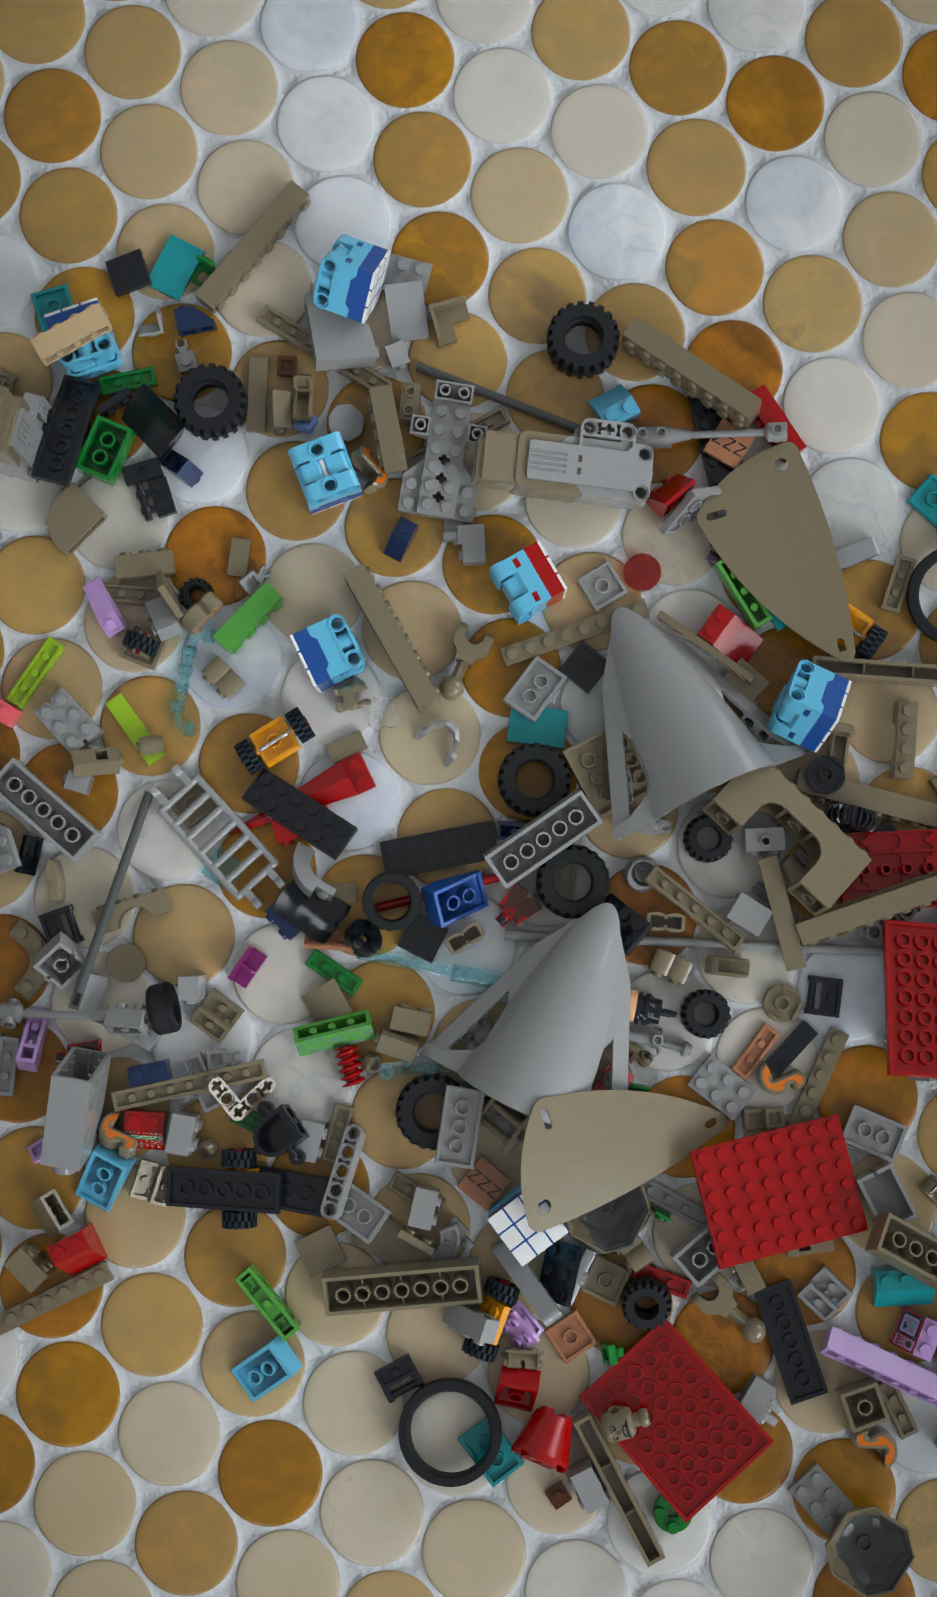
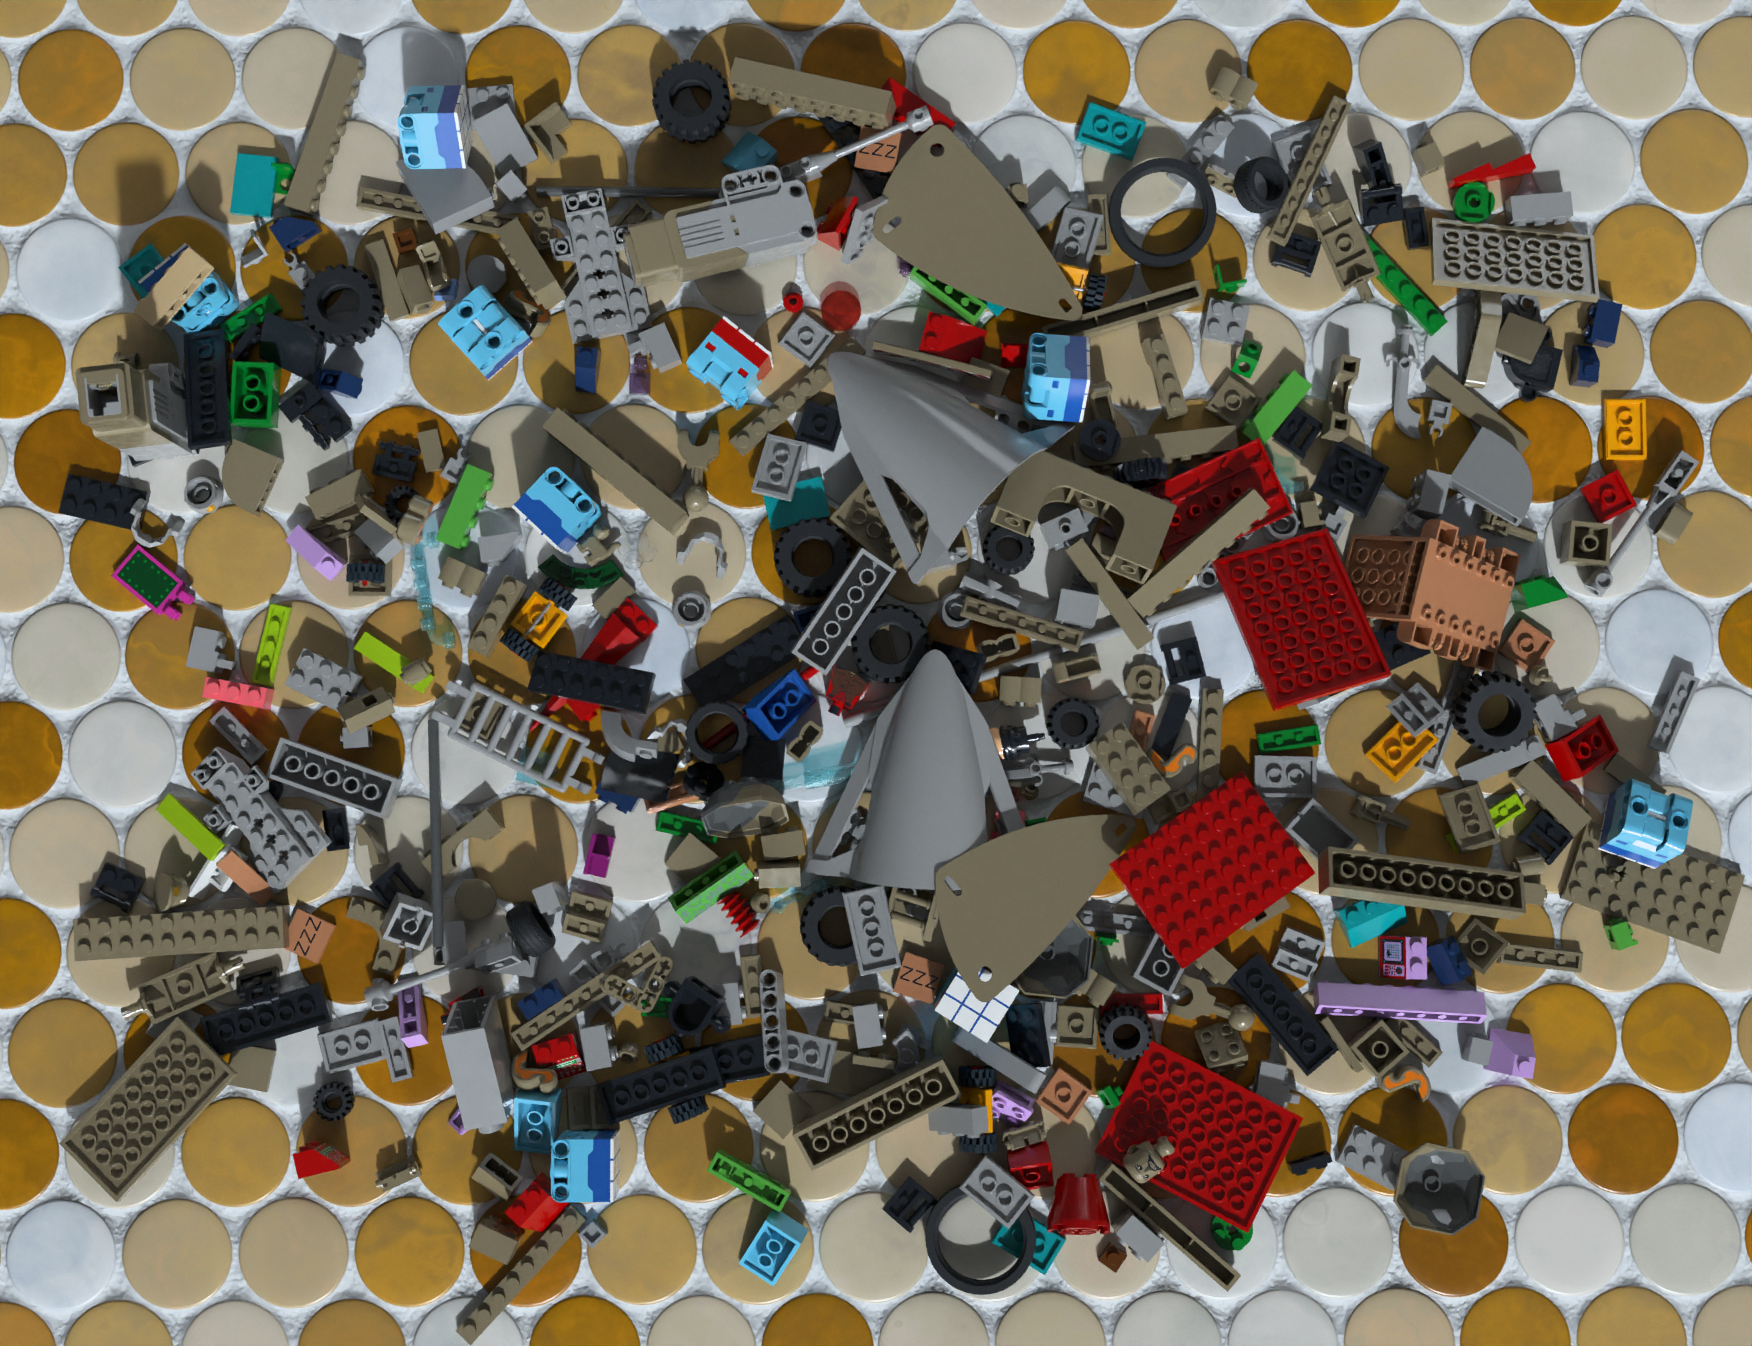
camera: 25 degrees left, 0 degrees up
(28, 519) = (203, 494): none -> light grey hat
(114, 1293) = (592, 1233): none -> light grey tile
(128, 273) = (209, 208): black tile -> none
(132, 1234) = (586, 1166): none -> piece
(200, 559) = (396, 468): none -> black plate
(238, 724) = (489, 630): none -> dark tan arch
(263, 664) = (498, 547): none -> light grey slope
(324, 718) = (581, 578): none -> dark green tile
(362, 881) = (681, 726): none -> light grey helmet
(389, 977) = (744, 810): none -> rock
(410, 784) = (691, 610): none -> light grey hat
(442, 567) = (640, 382): none -> clear purple plate
(480, 1398) = (997, 1191): none -> light grey tile
(599, 553) = (793, 308): none -> red plate
(677, 869) = (990, 591): none -> light grey piece
(725, 1350) = (1222, 1048): none -> dark tan bracket
(738, 1073) = (1128, 768): none -> dark tan brick
(771, 1482) = (1317, 1160): none -> black plate
(779, 669) = (1013, 354): none -> red piece
(831, 1386) = (1337, 1039): none -> dark tan tile
(838, 530) = (1018, 194): none -> dark tan brick
(874, 588) = (1077, 237): none -> light grey tile
(889, 1101) = (1288, 739): none -> green tile

